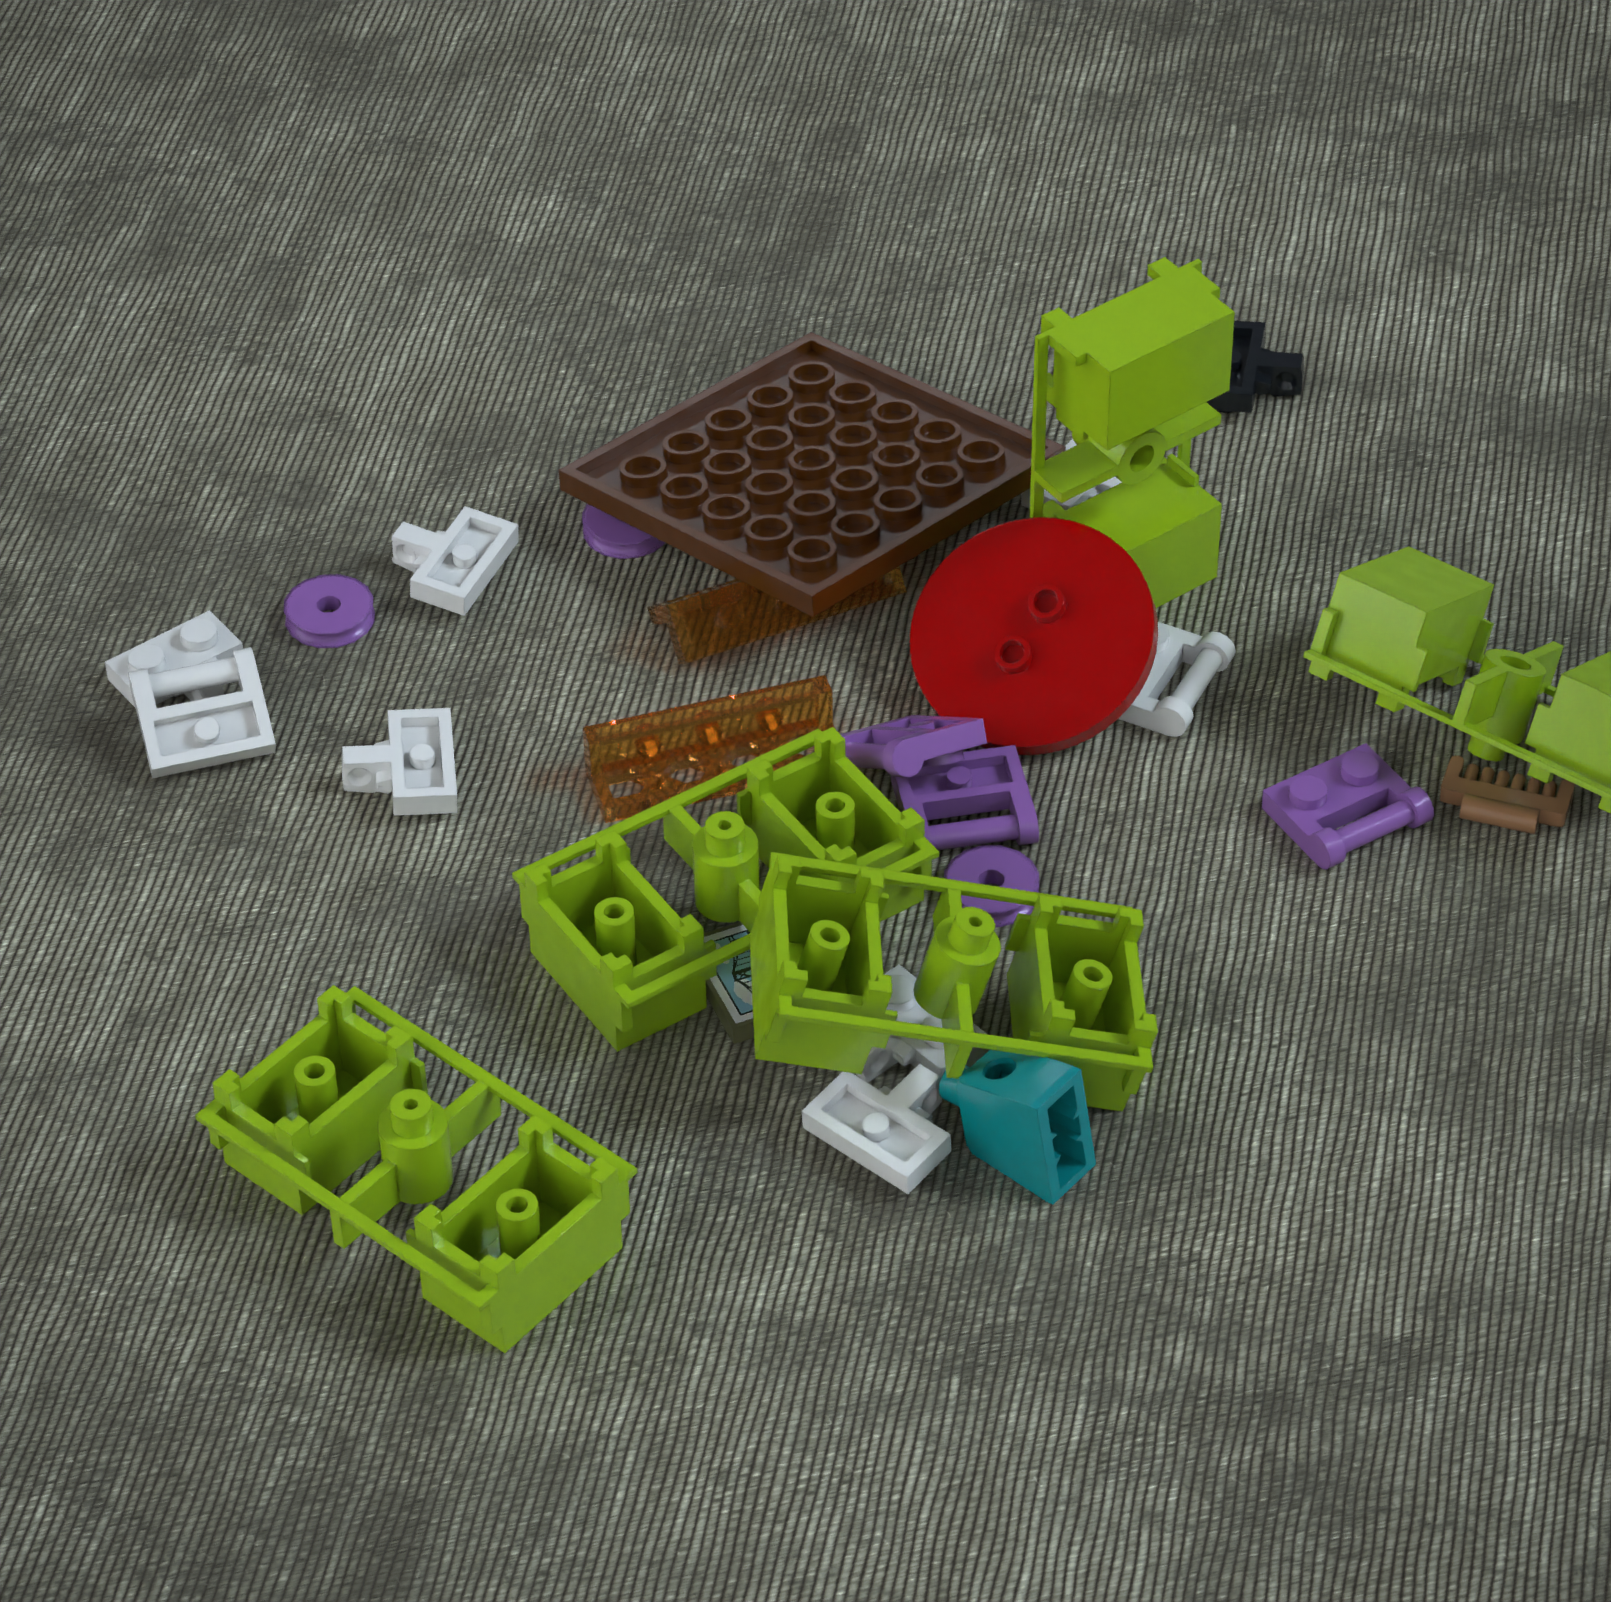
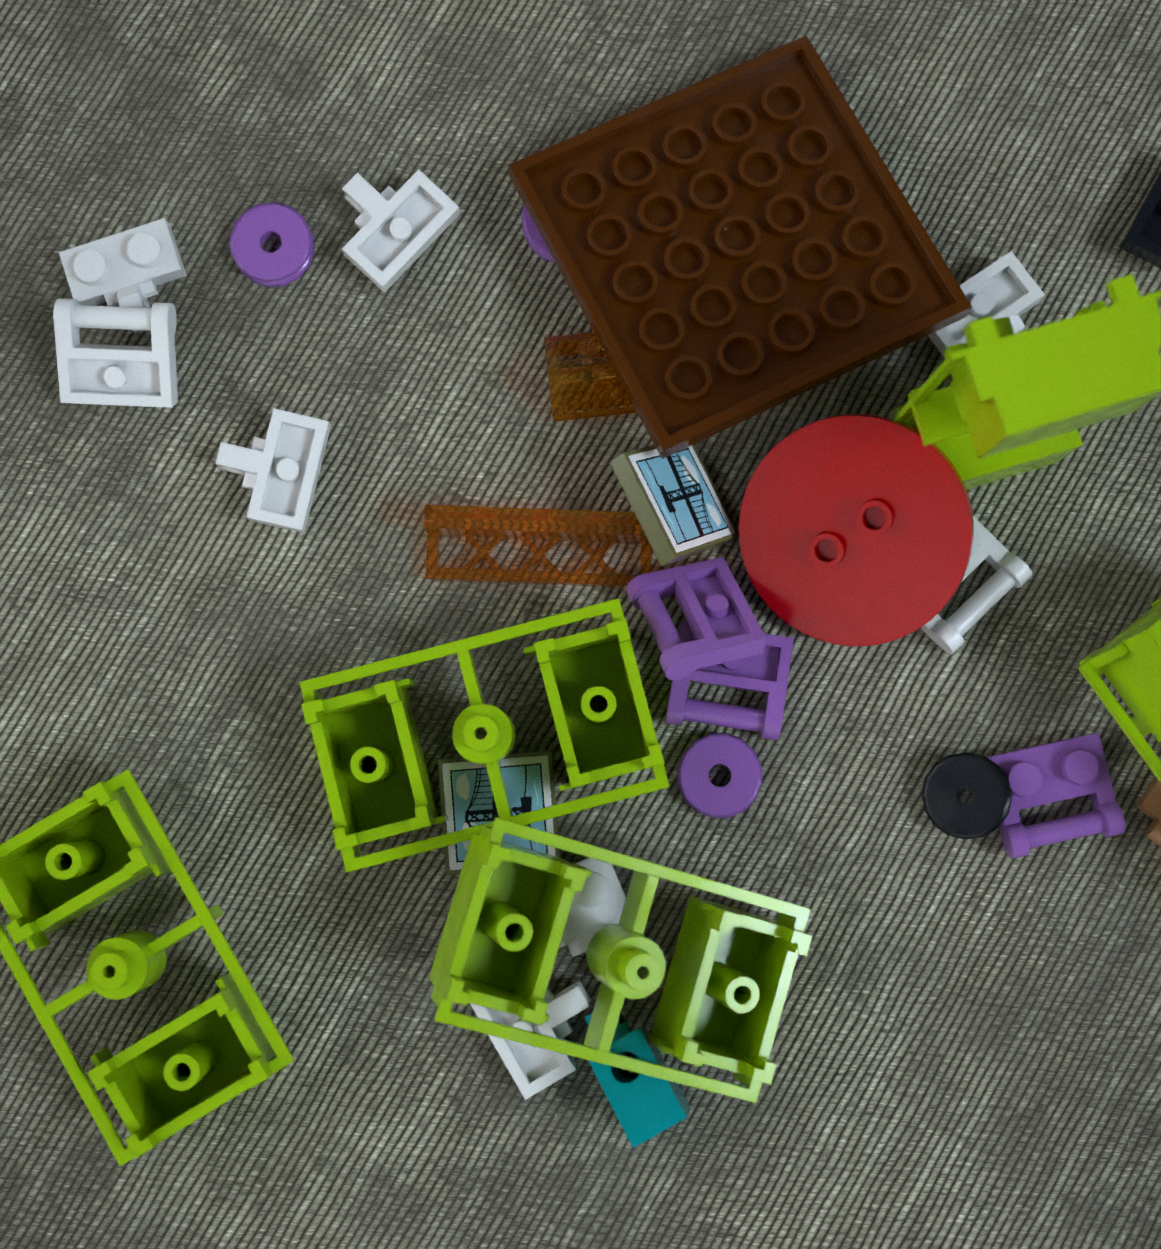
camera: 20 degrees right, 40 degrees up
(840, 666) = (674, 502): none -> tile
(1262, 842) = (990, 793): none -> black piece

